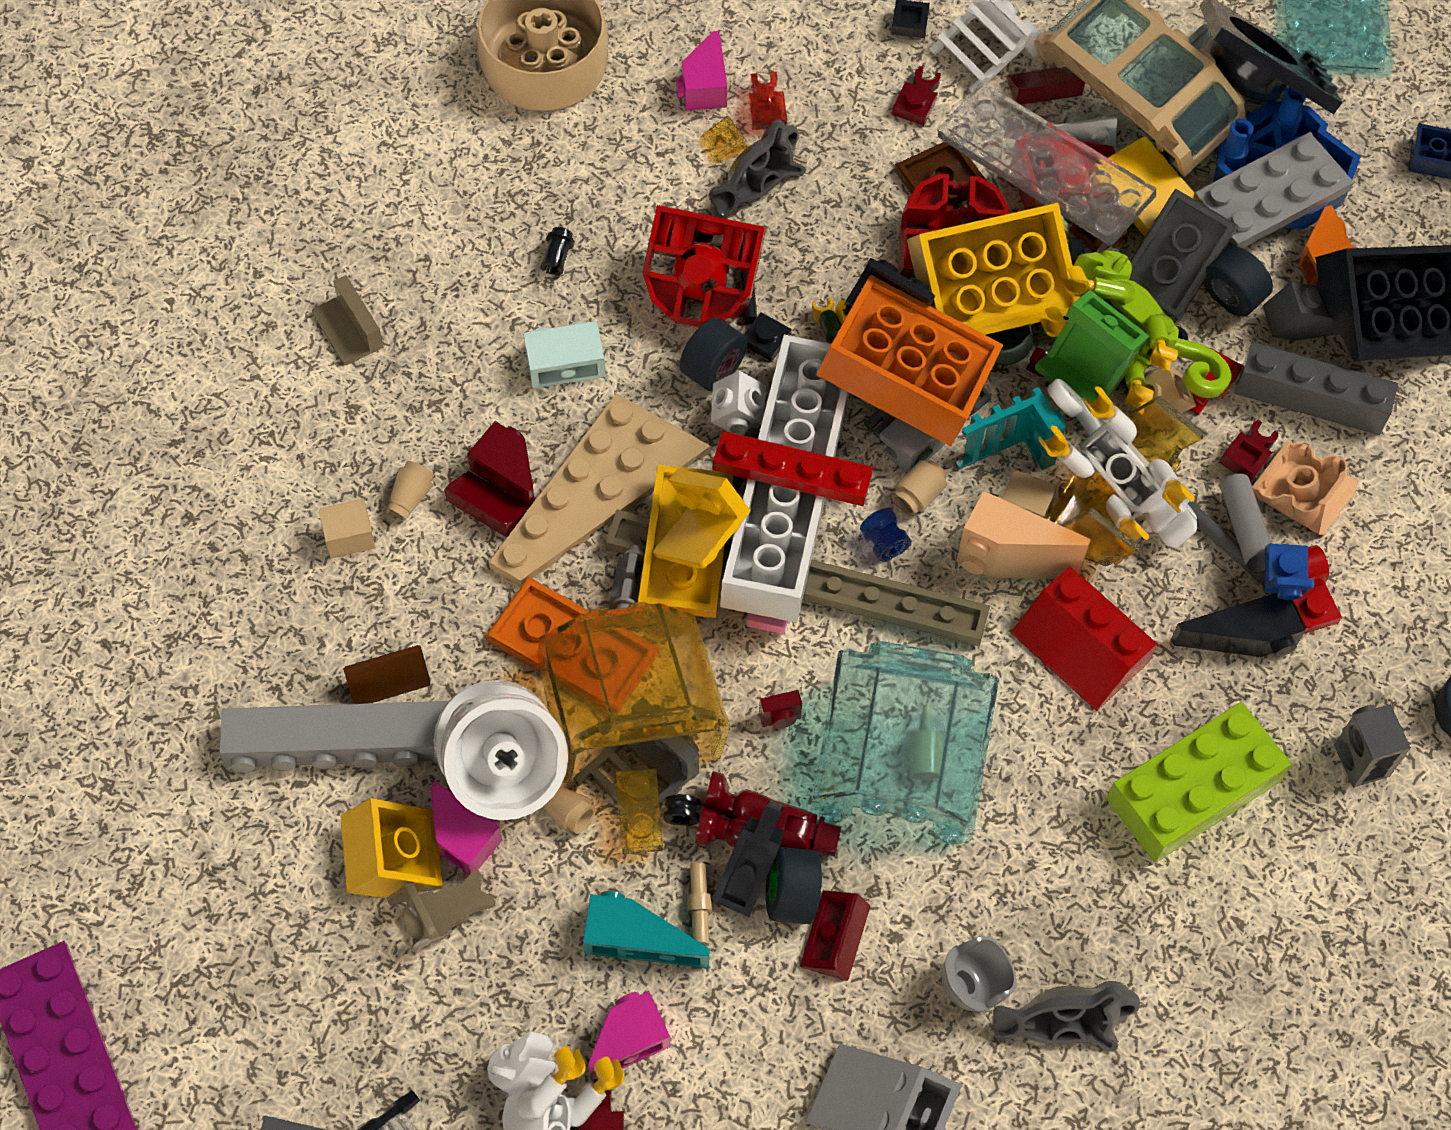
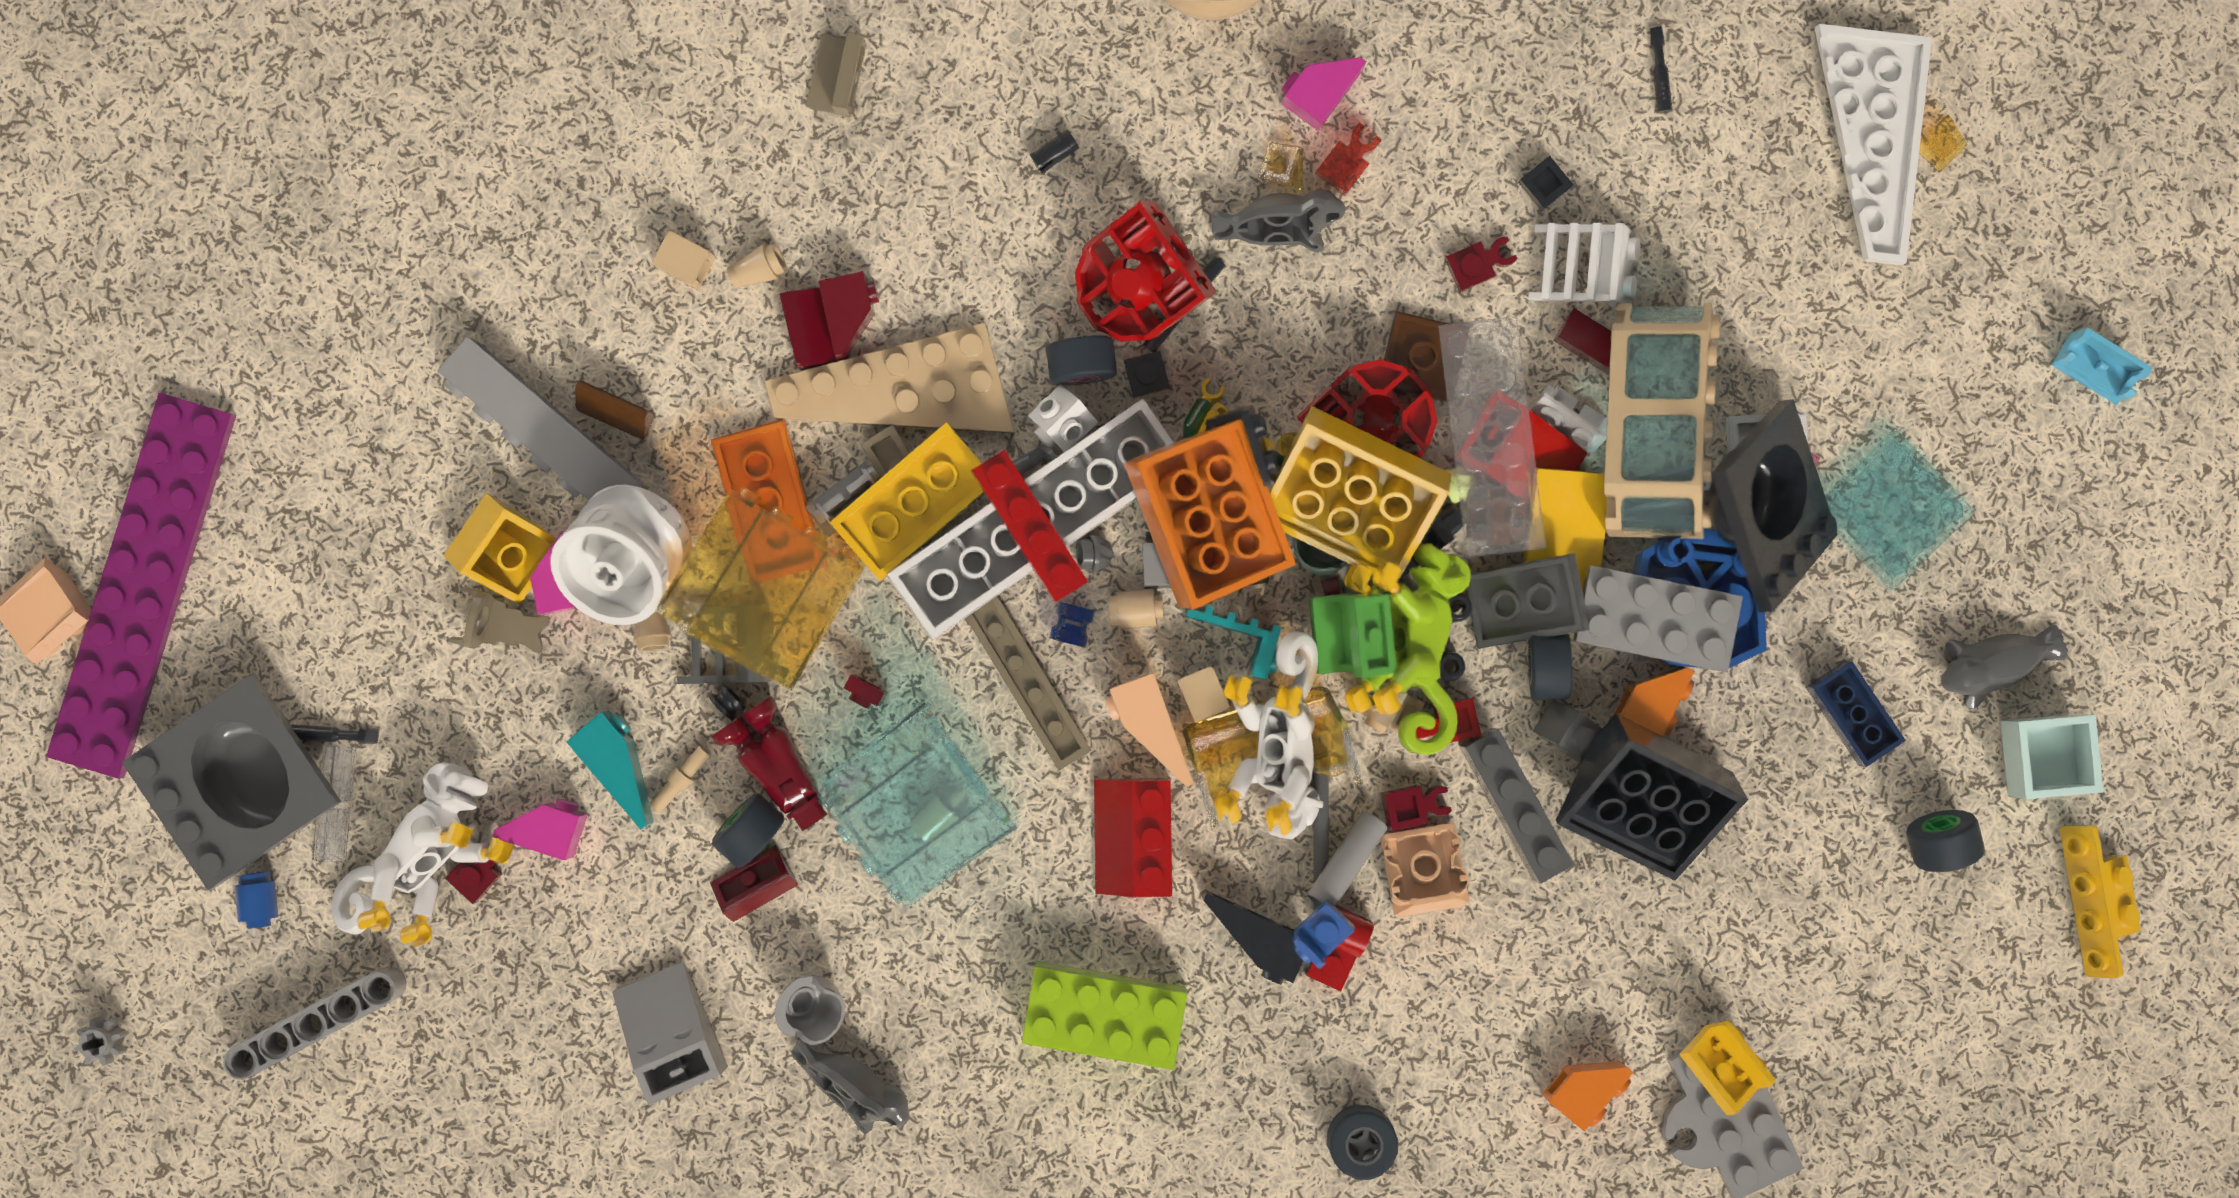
camera: 45 degrees right, 25 degrees up
(564, 354) = (974, 252): light aqua brick -> none
(639, 811) = (693, 679): clear yellow plate -> none
(706, 525) = (917, 512): yellow bracket -> none
(750, 861) = (734, 787): black hinge -> none
(1371, 744) = (1248, 1106): dark grey brick -> none

